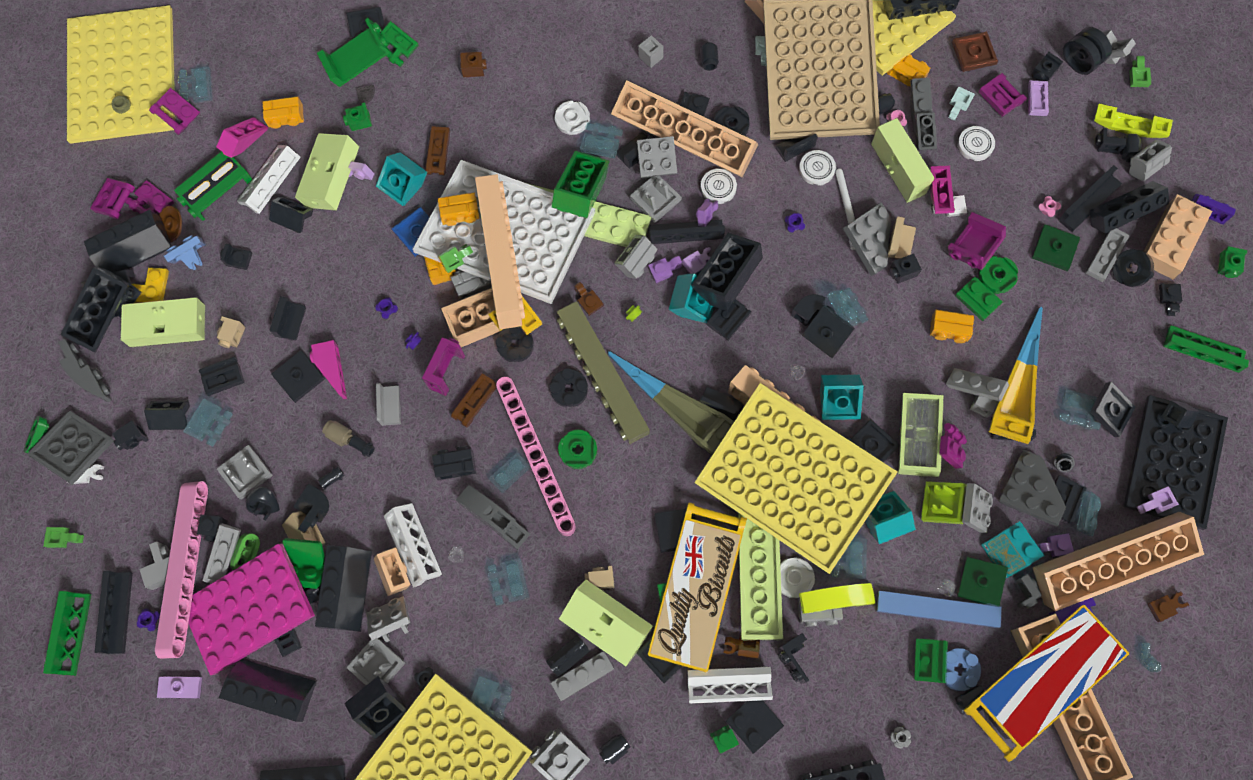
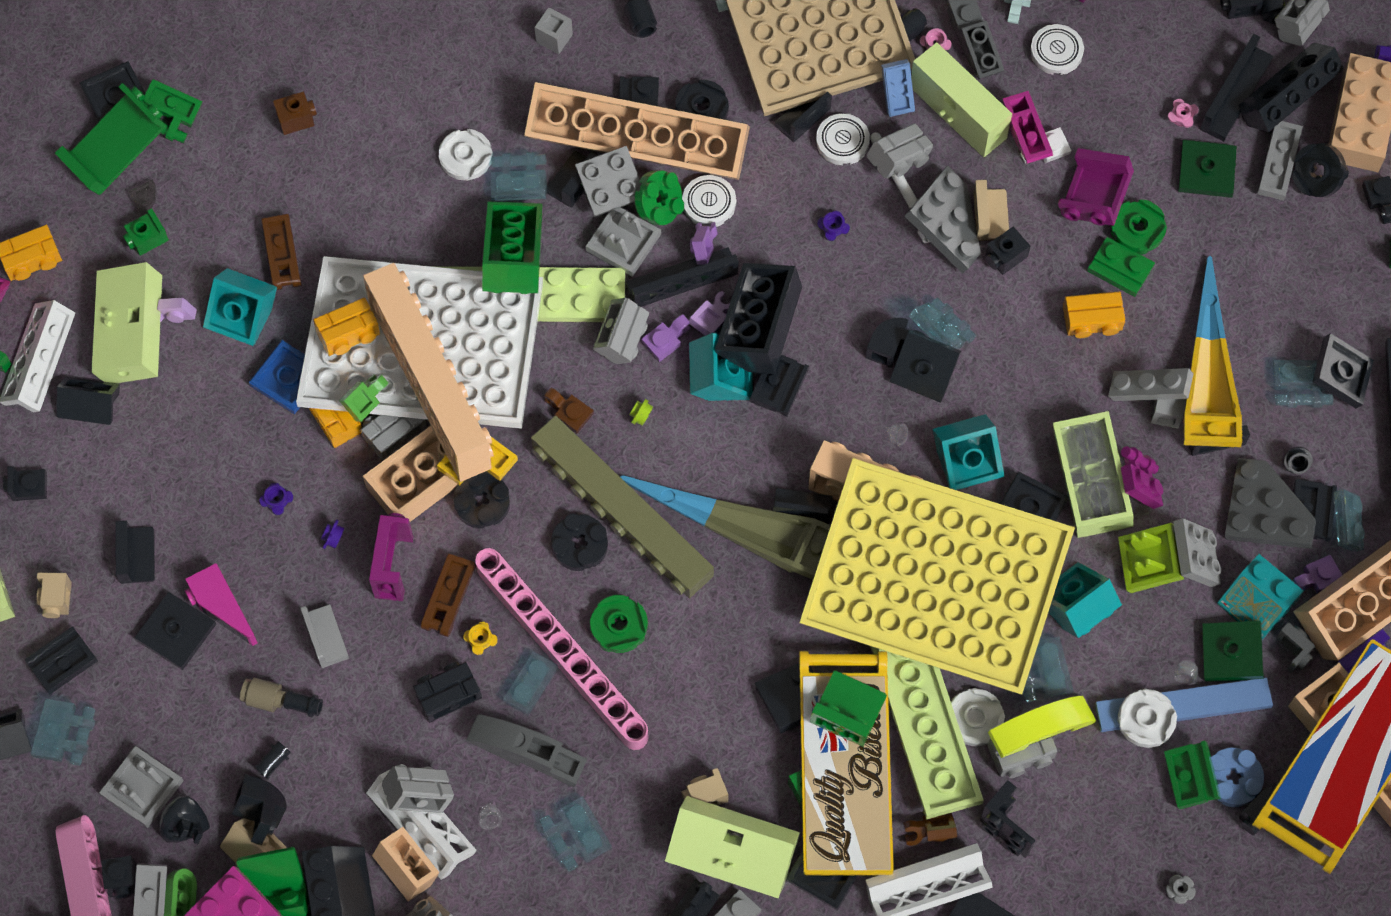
camera: 20 degrees left, 5 degrees down
(413, 524) = (417, 789): none -> light grey brick
(486, 429) = (483, 630): none -> yellow plate
(694, 177) = (671, 197): none -> green plate
(709, 551) = (848, 708): none -> green bracket
(852, 184) = (900, 151): none -> light grey brick
(863, 142) = (898, 87): none -> medium blue plate
(910, 612) = (1147, 718): none -> white tile

